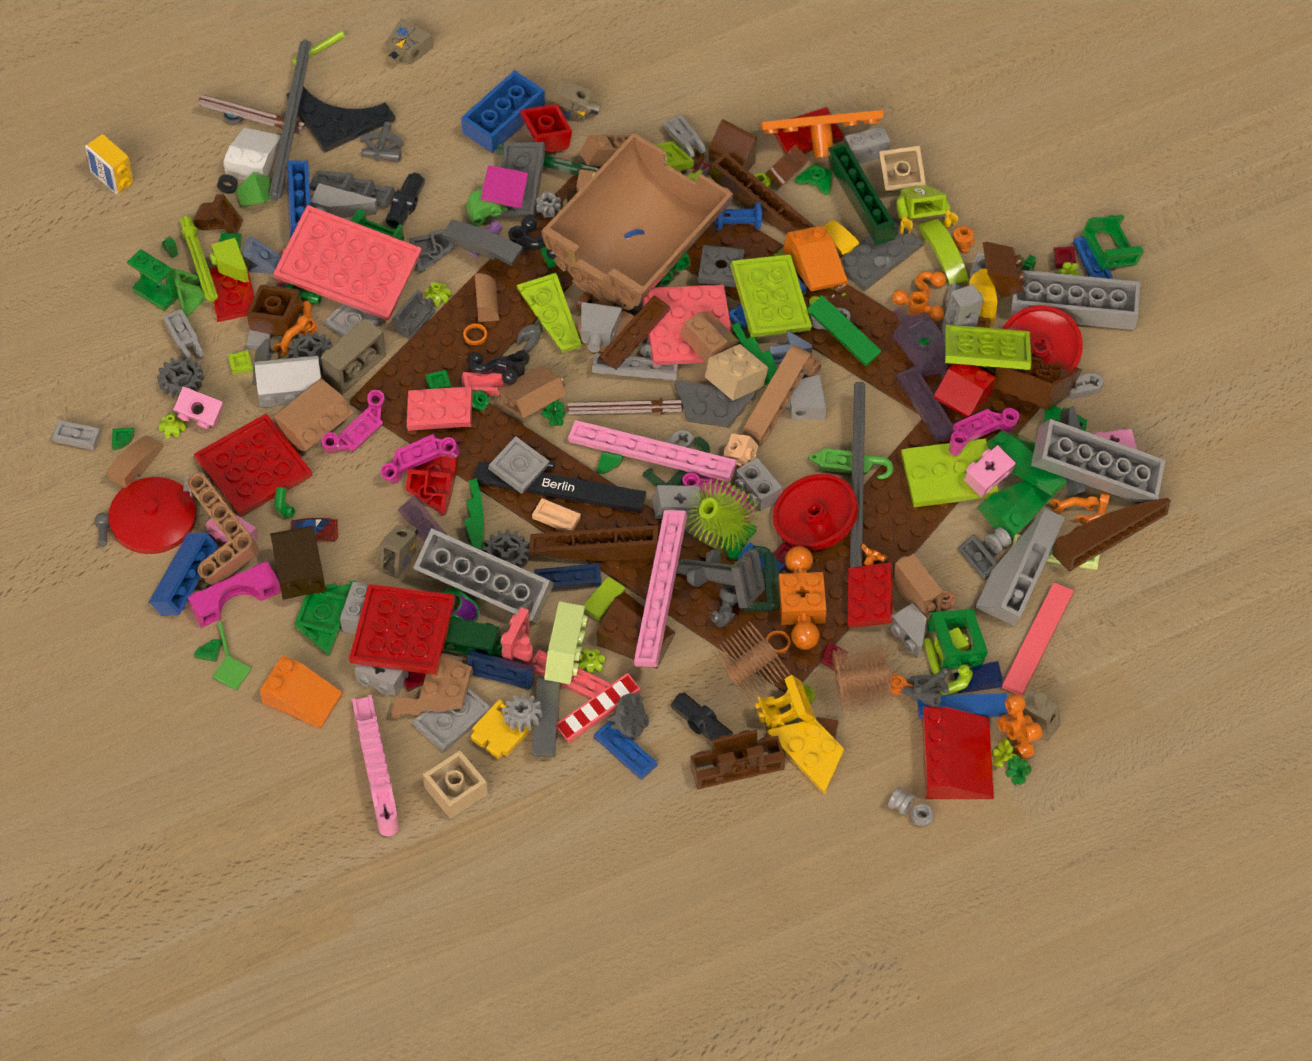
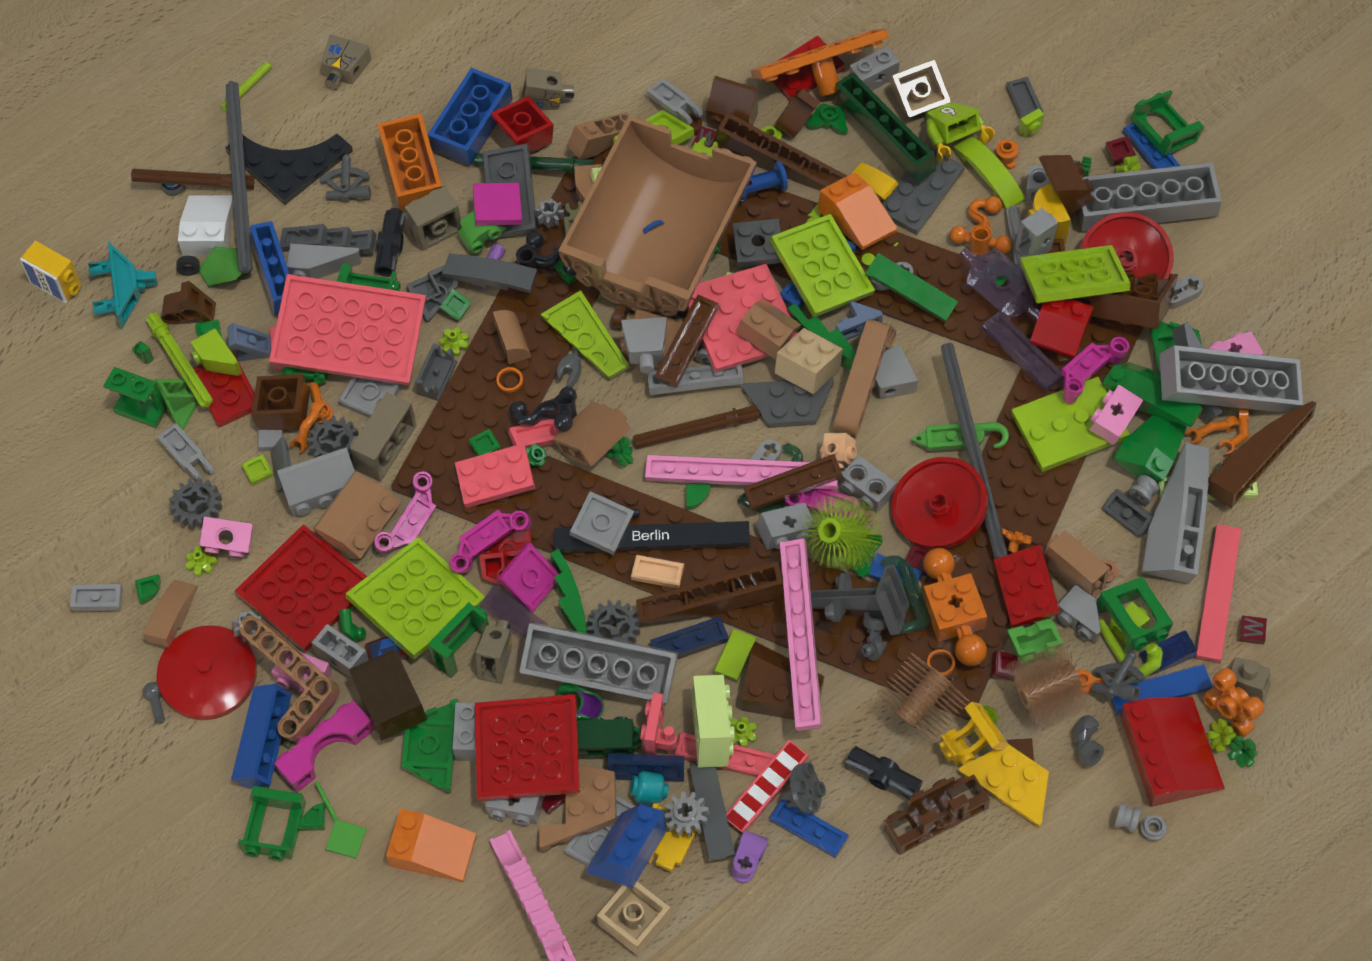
camera: 10 degrees left, 5 degrees up
(171, 188) = (126, 284): none -> teal connector
(174, 624) = (274, 798): none -> green panel
(265, 518) = (338, 650): none -> light grey brick
(344, 492) = (413, 596): none -> lime plate
(354, 542) = (443, 654): none -> green panel
(441, 138) = (409, 158): none -> orange brick
(444, 496) = (528, 577): none -> dark pink tile
(446, 187) = (433, 218): none -> dark tan brick
(446, 263) = (455, 305): none -> green plate
(467, 726) = (629, 845): none -> blue slope
(497, 687) = (648, 788): none -> teal head
(566, 760) = (749, 853): none -> medium lavender piece
(692, 467) = (793, 482): none -> reddish brown tile
(854, 636) = (1034, 638): none -> bright green cylinder
(884, 740) = (1089, 751): none -> dark grey arm
(992, 218) = (1031, 123): none -> lime plate
(993, 197) = (1023, 96): none -> dark grey tile
(1058, 675) = (1253, 629): none -> dark red tile

